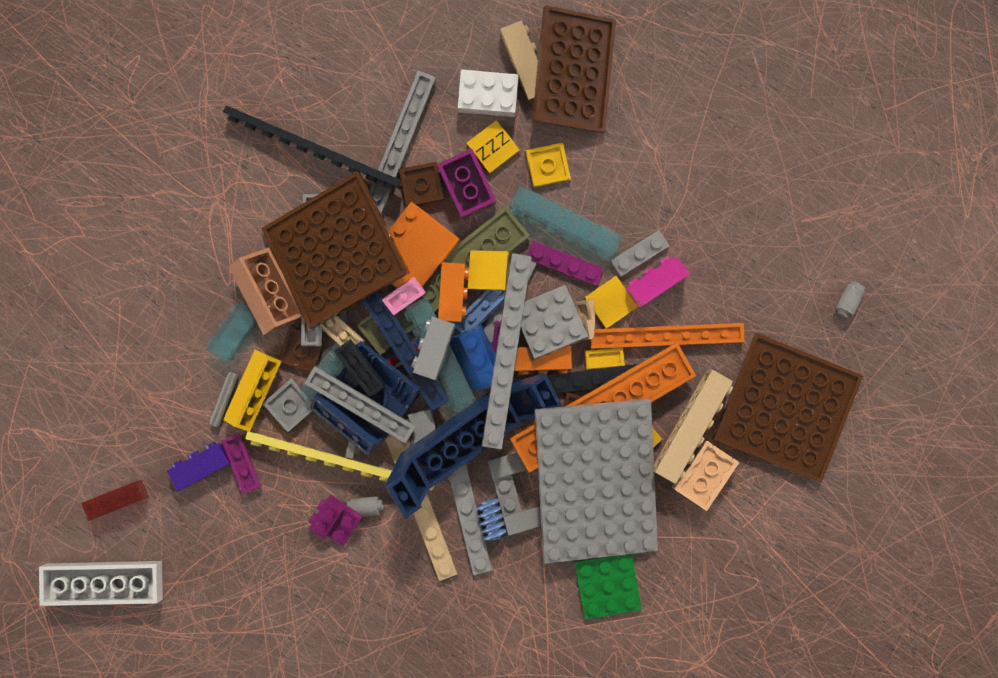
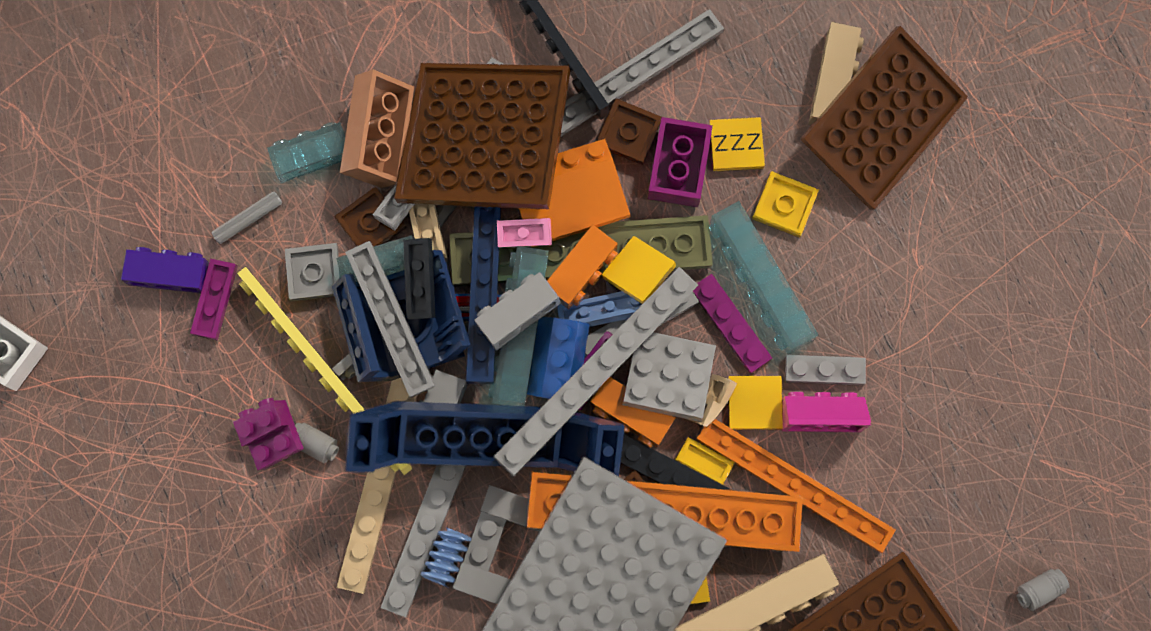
camera: 35 degrees right, 10 degrees down
(114, 500) = (48, 244): clear red brick -> none
(252, 390) = (283, 227): yellow brick -> none
(487, 93) = (770, 82): white brick -> none

